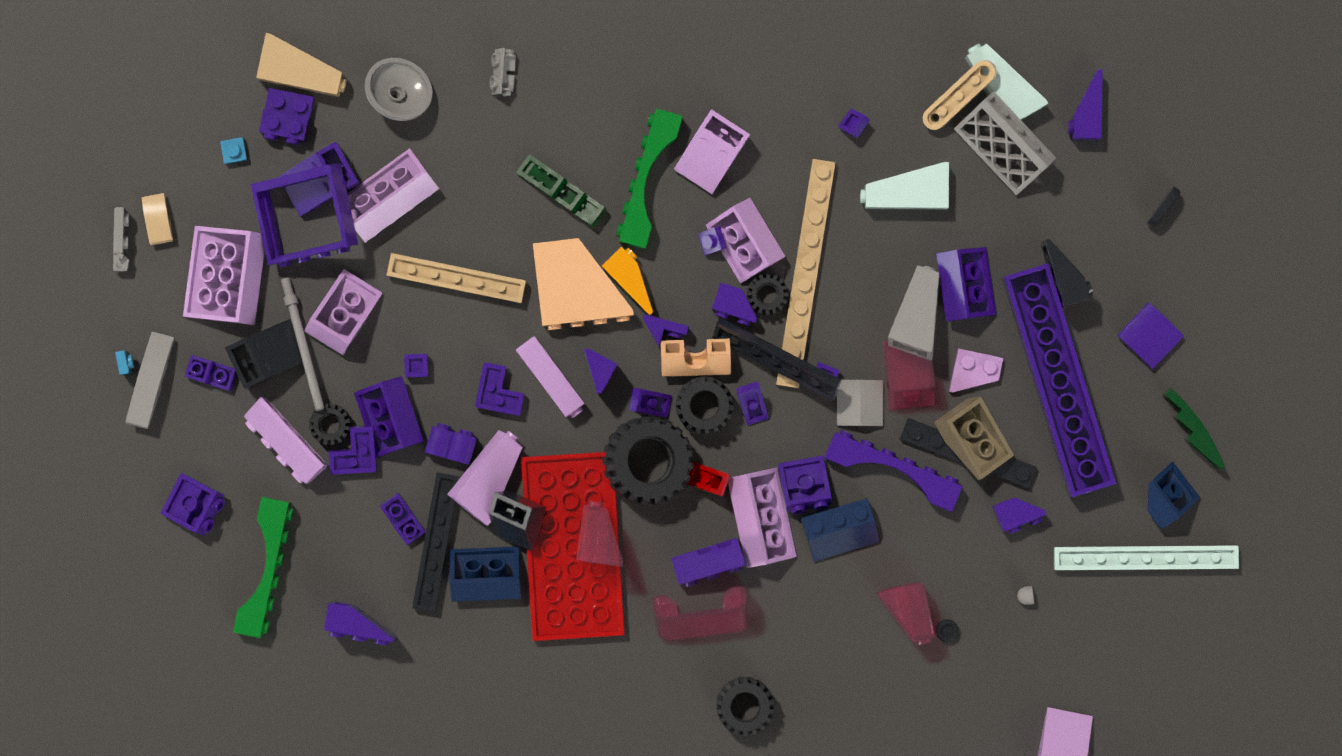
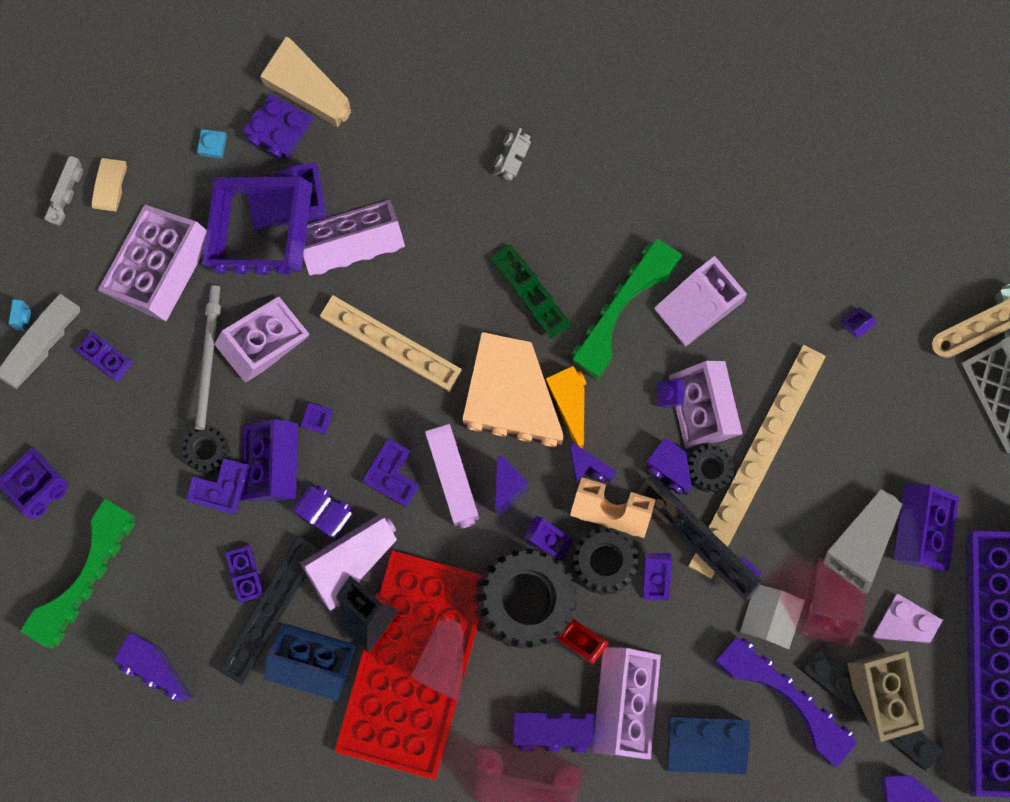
camera: 25 degrees right, 10 degrees down
(265, 354) = (164, 354): black slope -> none
(285, 440) = (152, 449): lavender slope -> none
(404, 81) = (399, 134): light grey dish -> none
(805, 485) = (685, 684): dark purple plate -> none
(912, 190) = (899, 411): light aqua slope -> none

